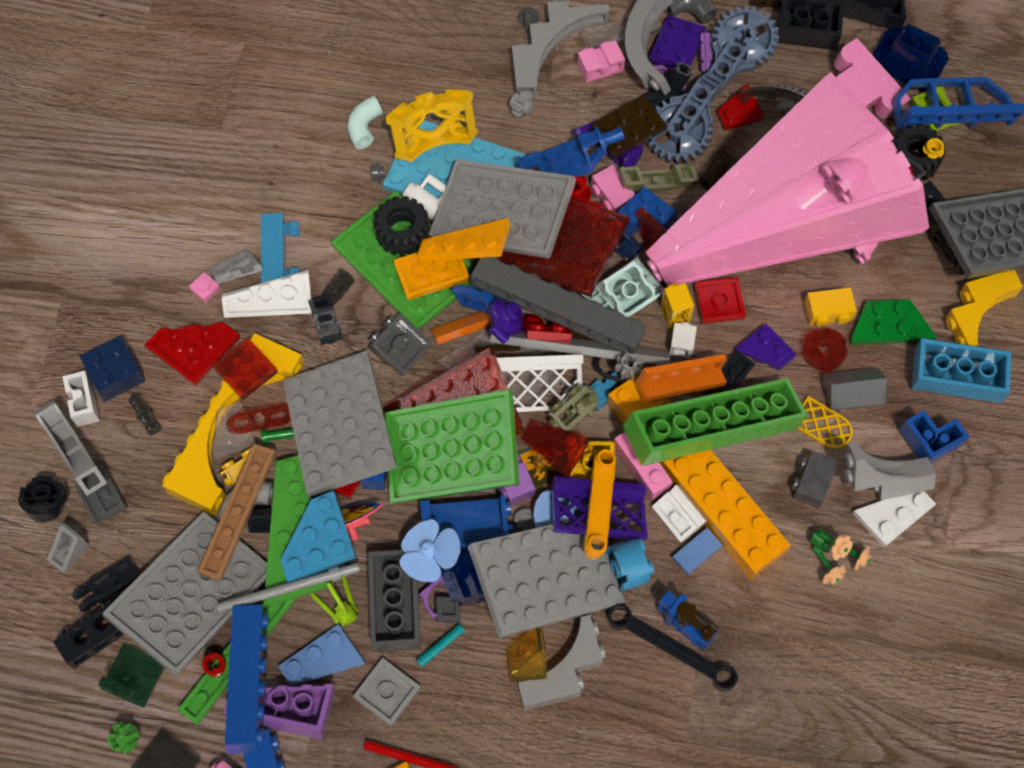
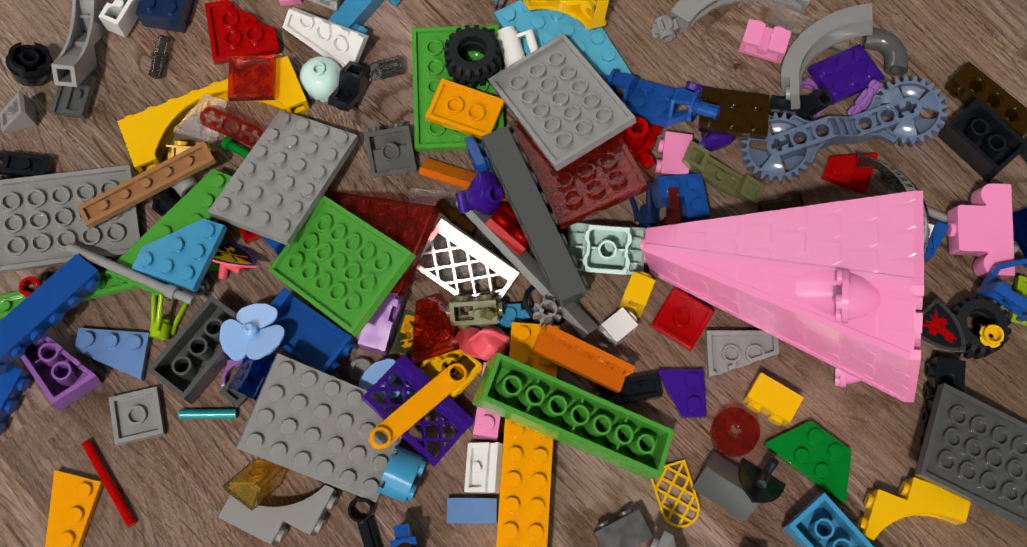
camera: 40 degrees right, 5 degrees up
(294, 331) = (319, 78): none -> light aqua cylinder
(472, 242) = (506, 109): light orange wing -> none
(601, 425) = (483, 342): none -> coral piece
(775, 291) = (736, 349): none -> light grey wing
(873, 368) = (759, 483): none -> black shield

